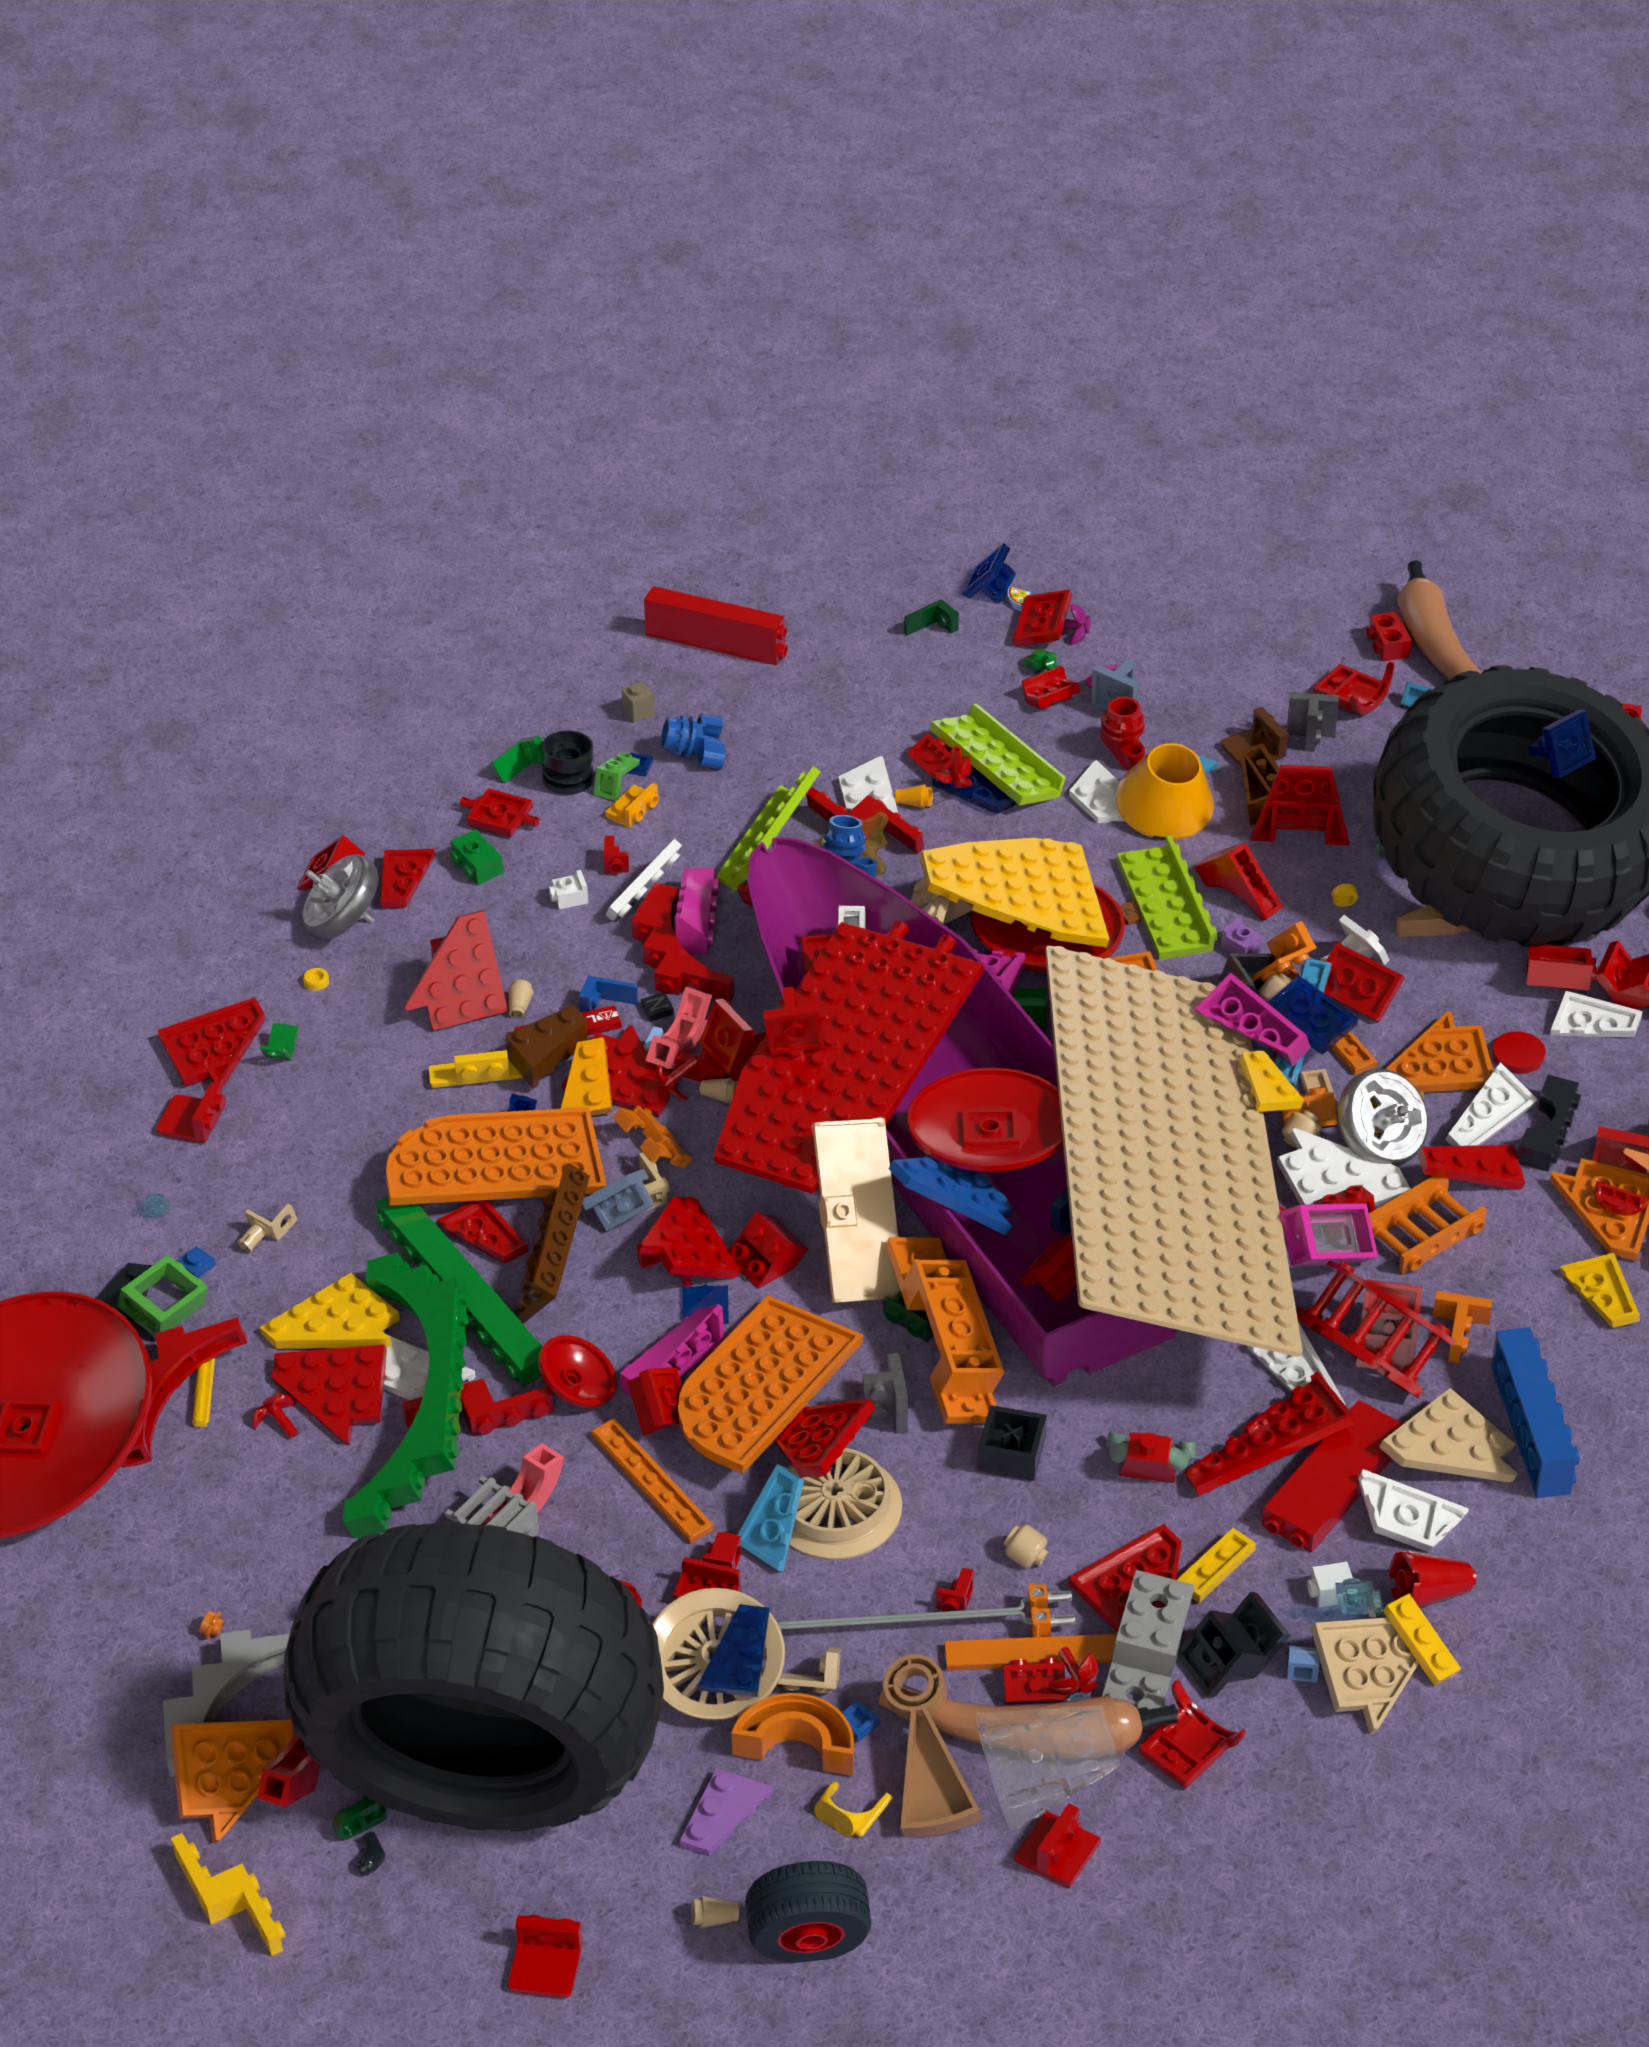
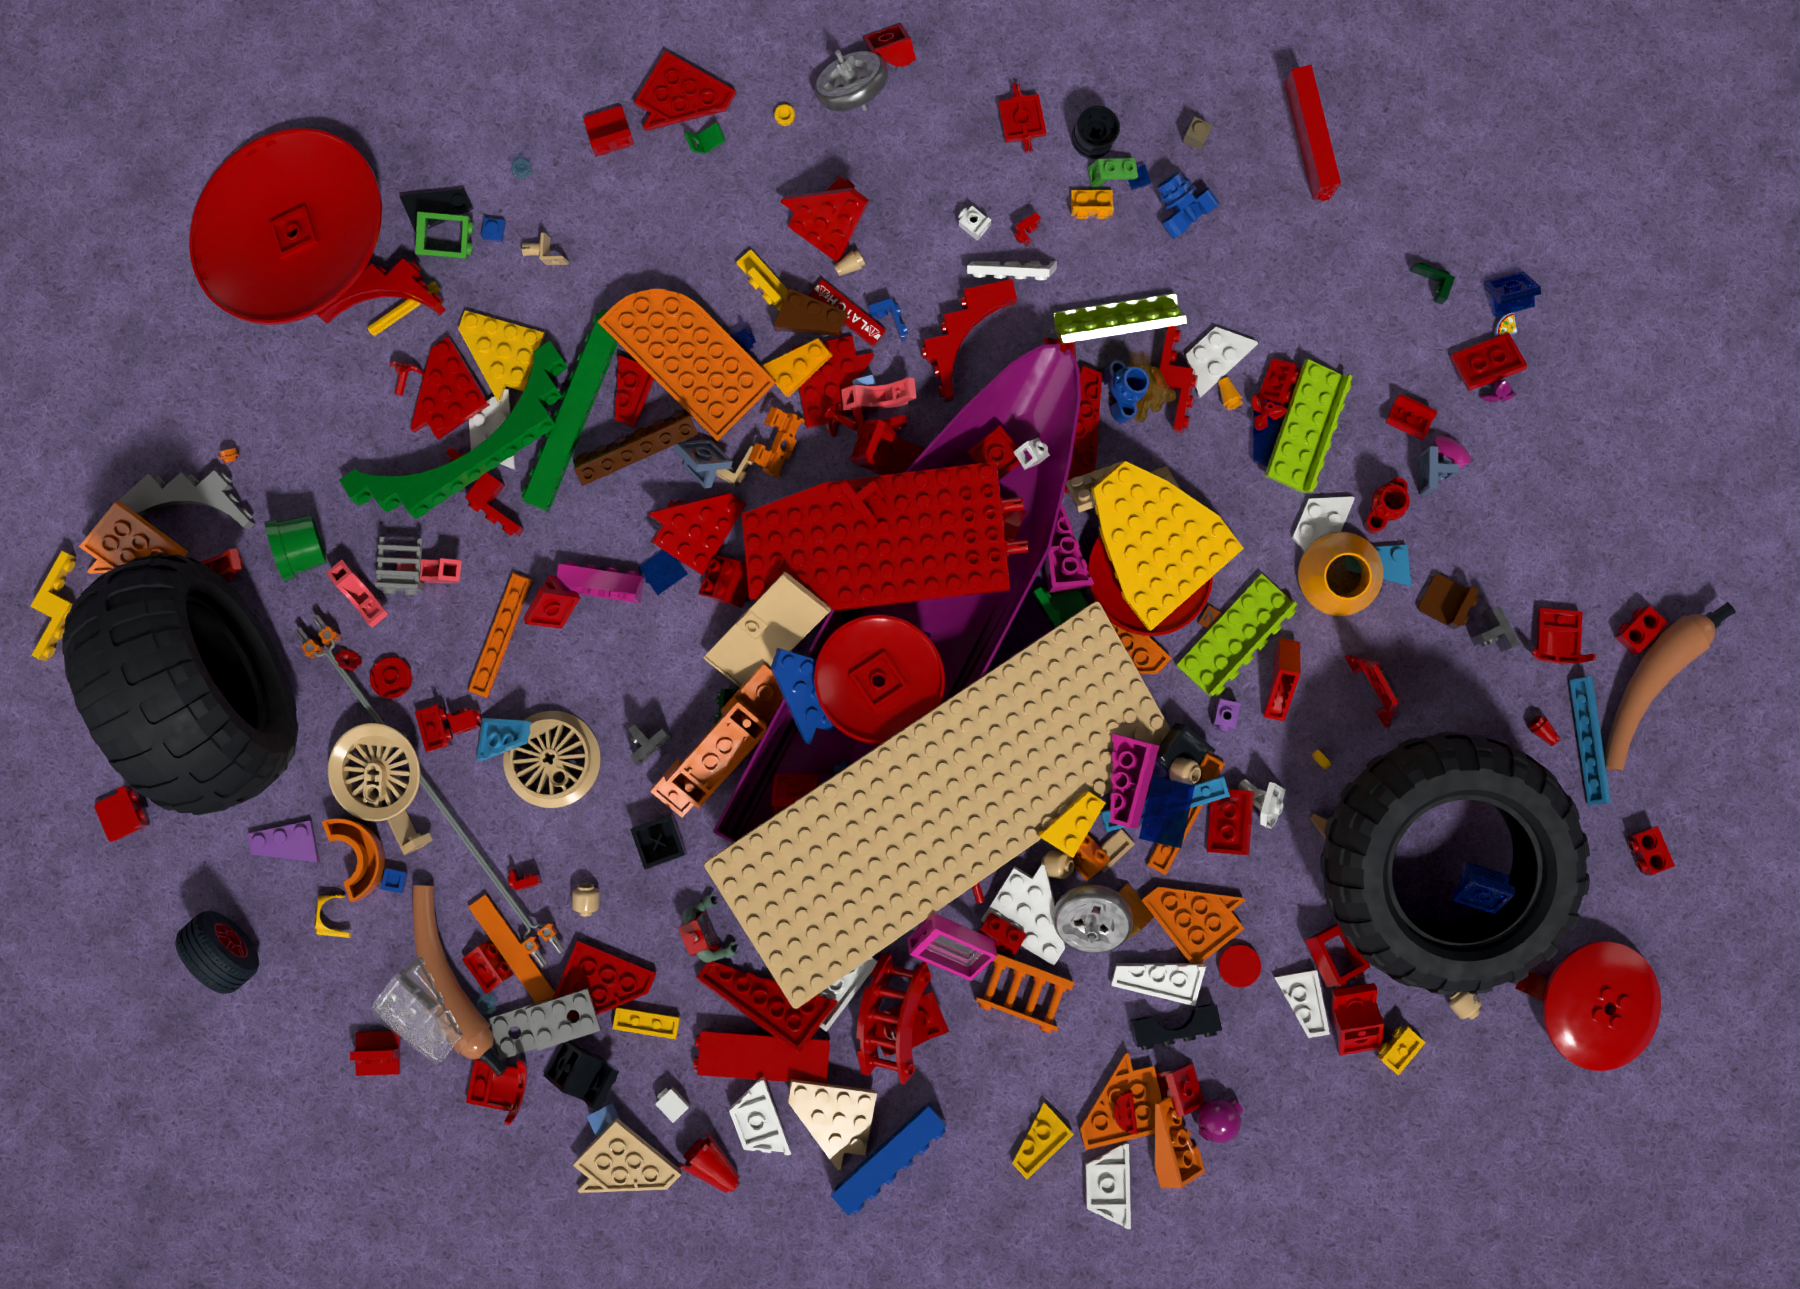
camera: 55 degrees right, 40 degrees up
(402, 875) = (916, 98): red wing -> none
(476, 857) = (964, 137): green brick -> none
(518, 757) = (1081, 90): green bracket -> none
(577, 1371) = (547, 548): red dish -> none
(657, 1006) = (905, 358): black tile -> none
(696, 909) = (1009, 322): dark pink wedge -> none
(713, 1911) = (211, 885): tan cone -> none
(719, 1089) = (849, 445): tan cone -> none
(740, 1654) = (377, 790): clear blue wing -> none
(760, 1381) = (609, 653): orange plate -> none
(821, 1434) = (575, 725): red wing -> none
(934, 1789) = (366, 960): medium nougat piece -> none
(1041, 659) = (1441, 390): green plate -> none
(1079, 1675) = (497, 996): red plant -> none
(1258, 774) = (1398, 638): reddish brown wedge -> none
(1288, 948) = (1216, 766): orange bracket -> none
(1359, 1598) = (661, 1134): clear light blue bracket -> none
(1421, 1639) = (659, 1184): yellow plate -> none
(1464, 1312) = (948, 1066): orange bracket -> none
(1476, 1163) = (1101, 1002): red wing -> none

